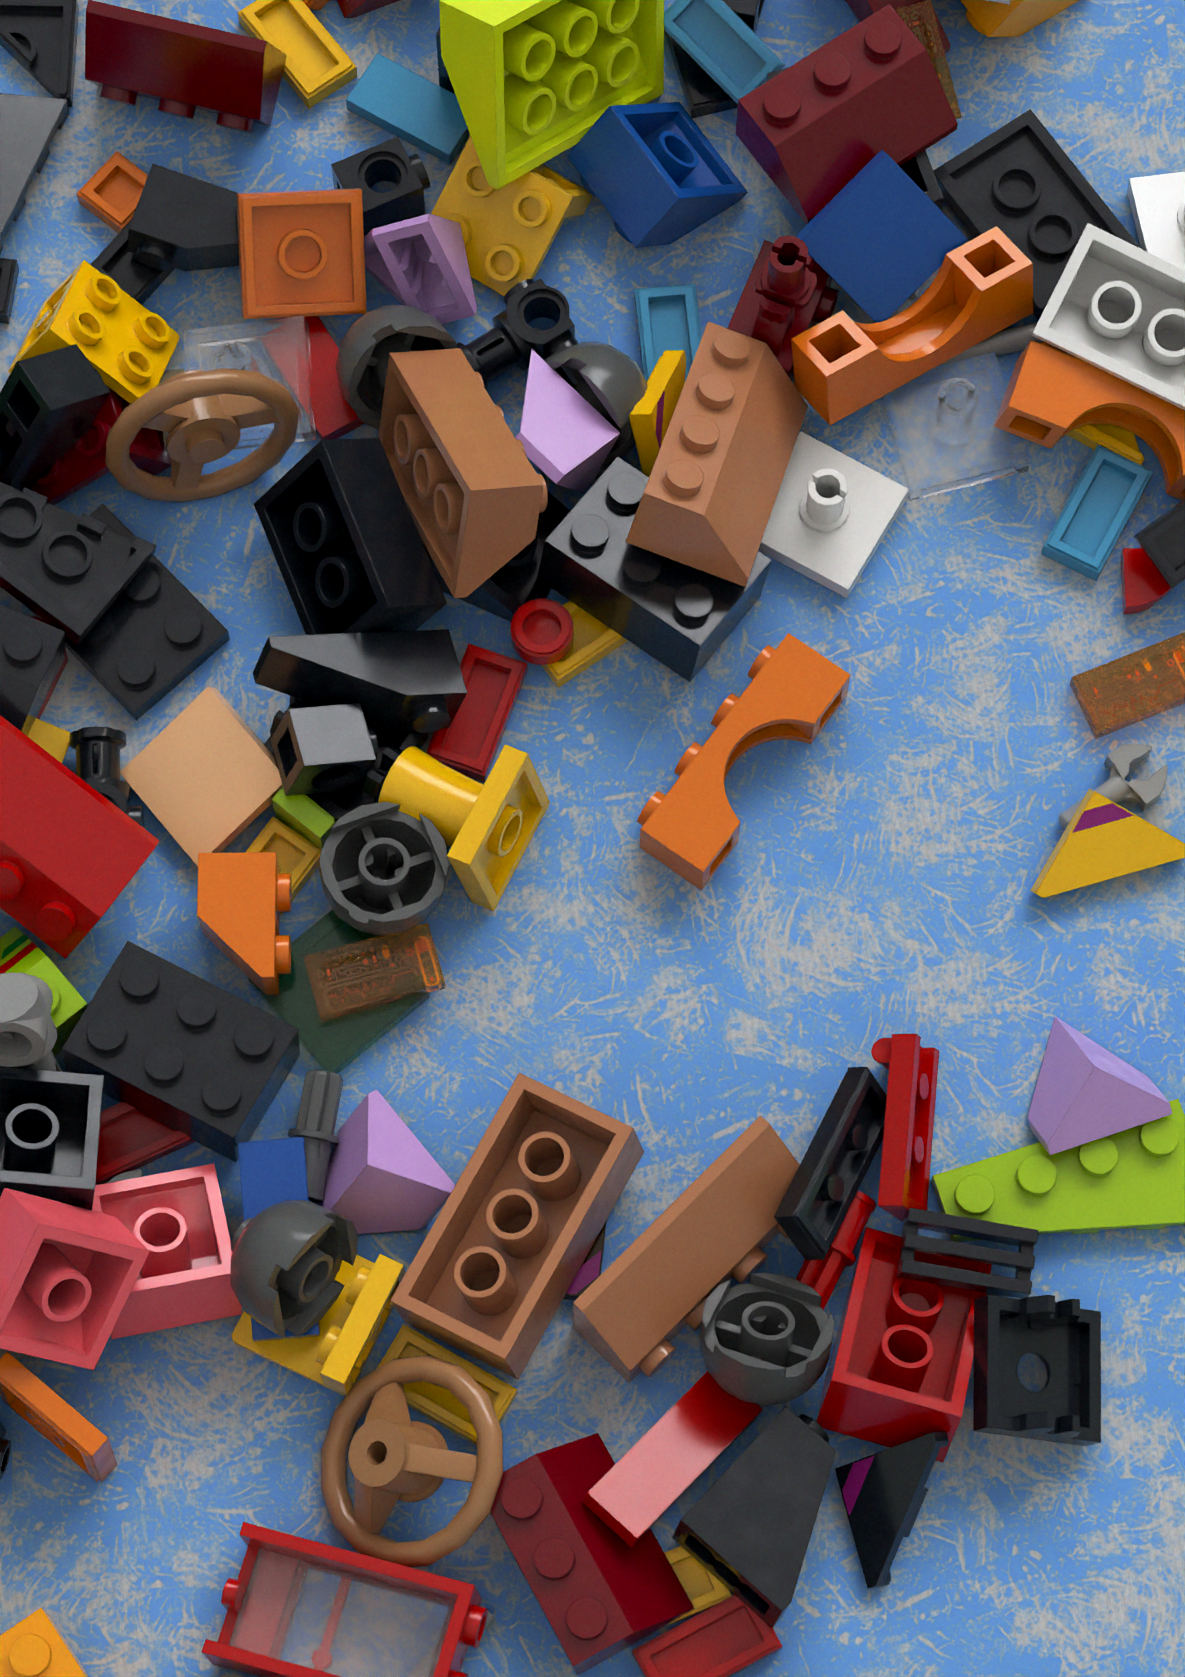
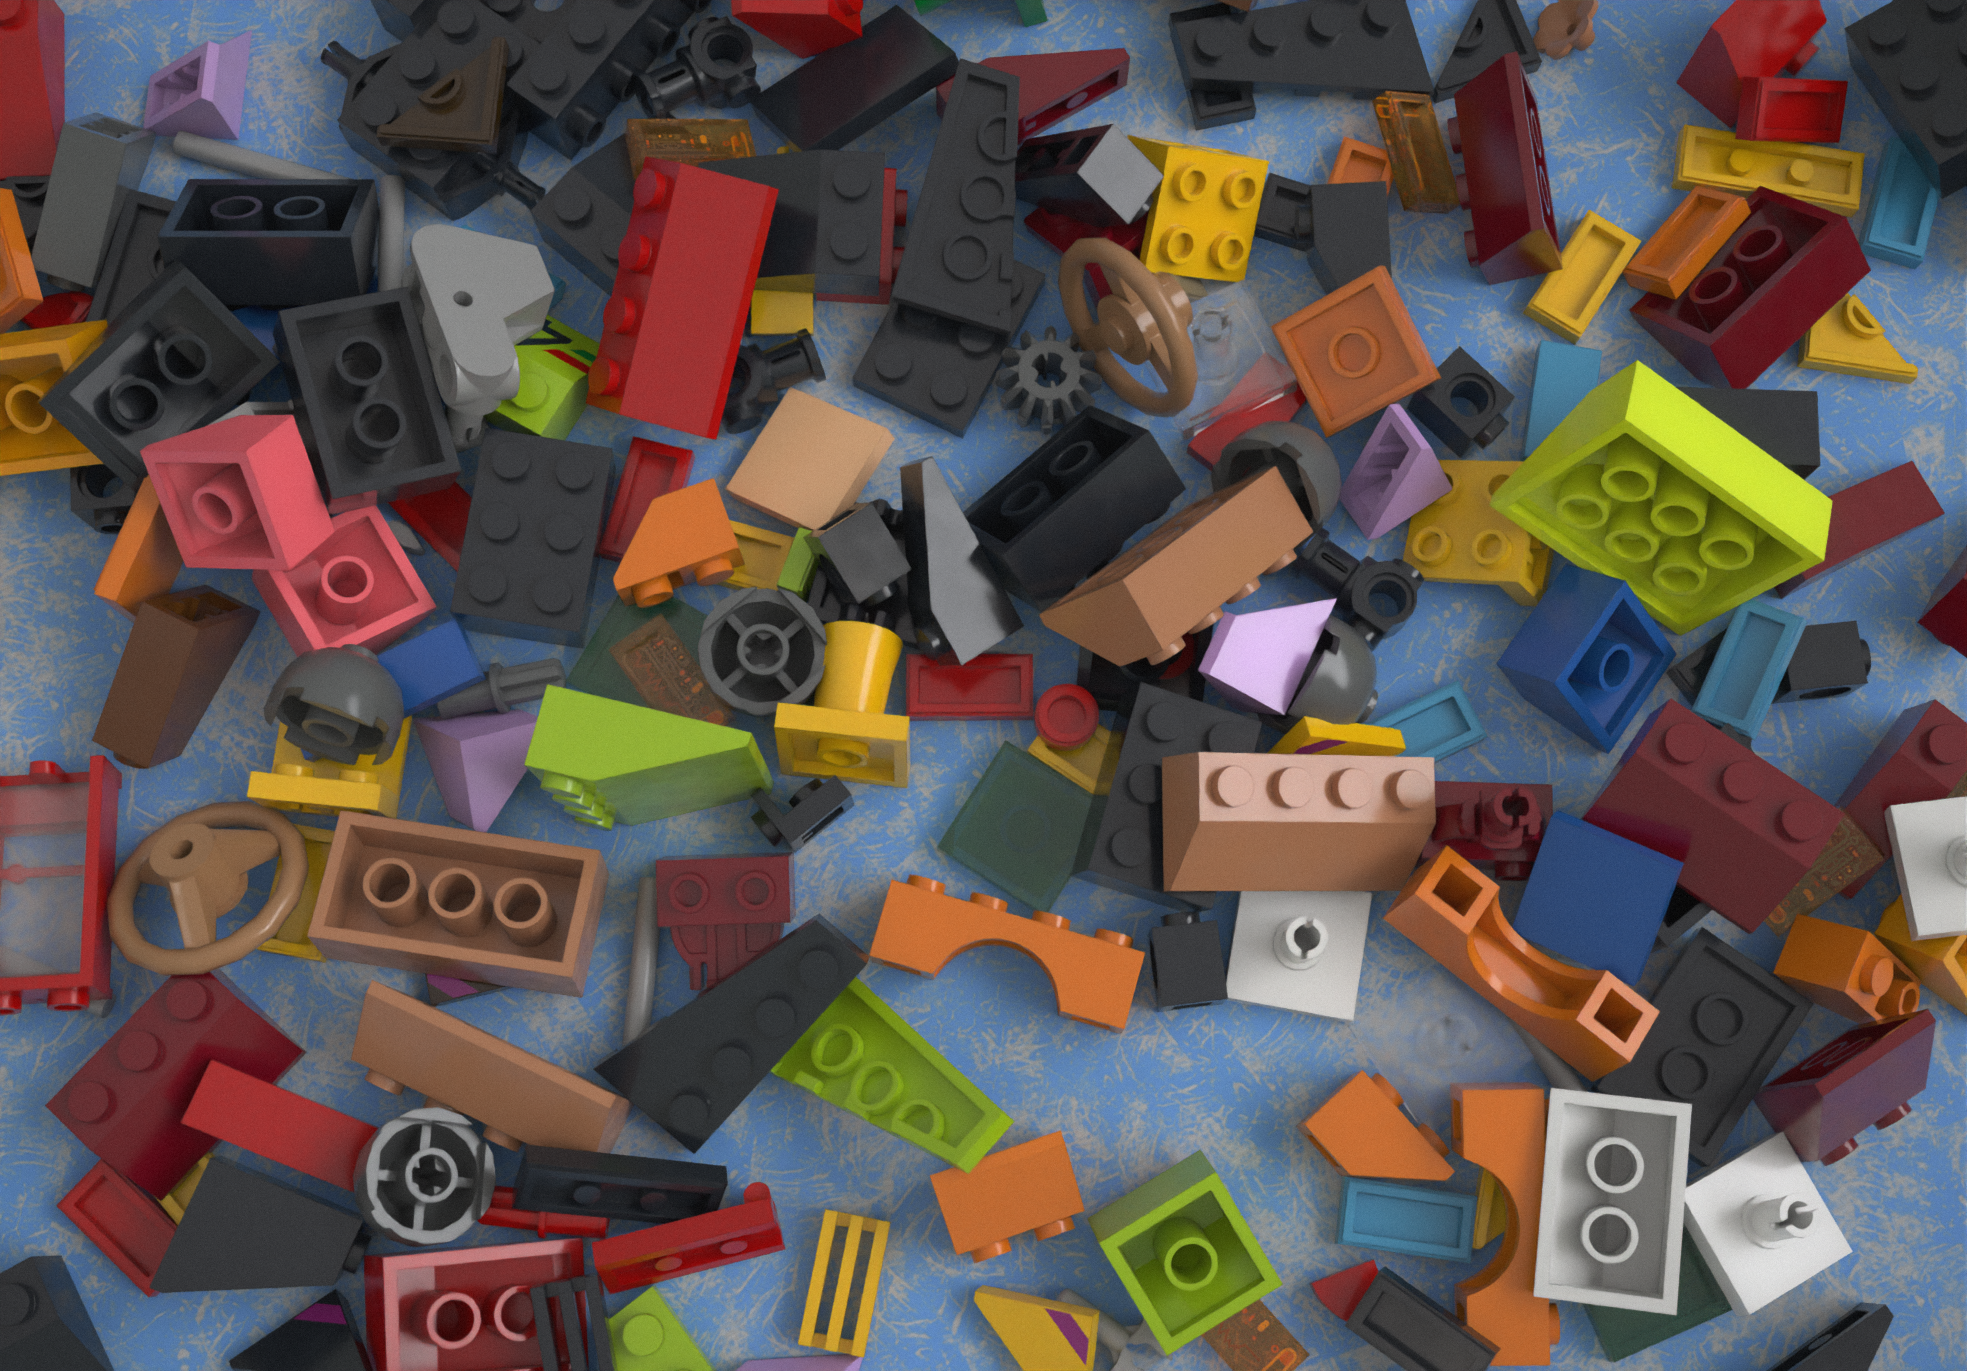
camera: 70 degrees right, 5 degrees up
(120, 136) = (1416, 152): none -> clear orange tile
(174, 935) = (648, 473): none -> red tile
(184, 1441) = (171, 673): none -> reddish brown slope
(201, 554) = (1044, 357): none -> dark grey gear
(447, 1001) = (638, 762): none -> lime slope
(543, 885) = (813, 811): none -> black bracket
(627, 996) = (724, 908): none -> dark red brick
(628, 712) = (1020, 828): none -> clear green tile
(640, 1097) = (643, 962): none -> light grey bar
(732, 1016) = (719, 1046): none -> black wing
(808, 606) = (1186, 962): none -> black brick
(809, 896) = (892, 1078): none -> lime wing
(961, 828) = (1009, 1195): none -> orange slope
(998, 986) = (832, 1340): none -> yellow tile
(1013, 511) = (1370, 1137): none -> orange slope
(1015, 71) = (1846, 971): none -> orange slope
(1061, 697) = (1184, 1252): none -> lime slope
(1109, 105) = (1850, 1085): none -> dark red slope

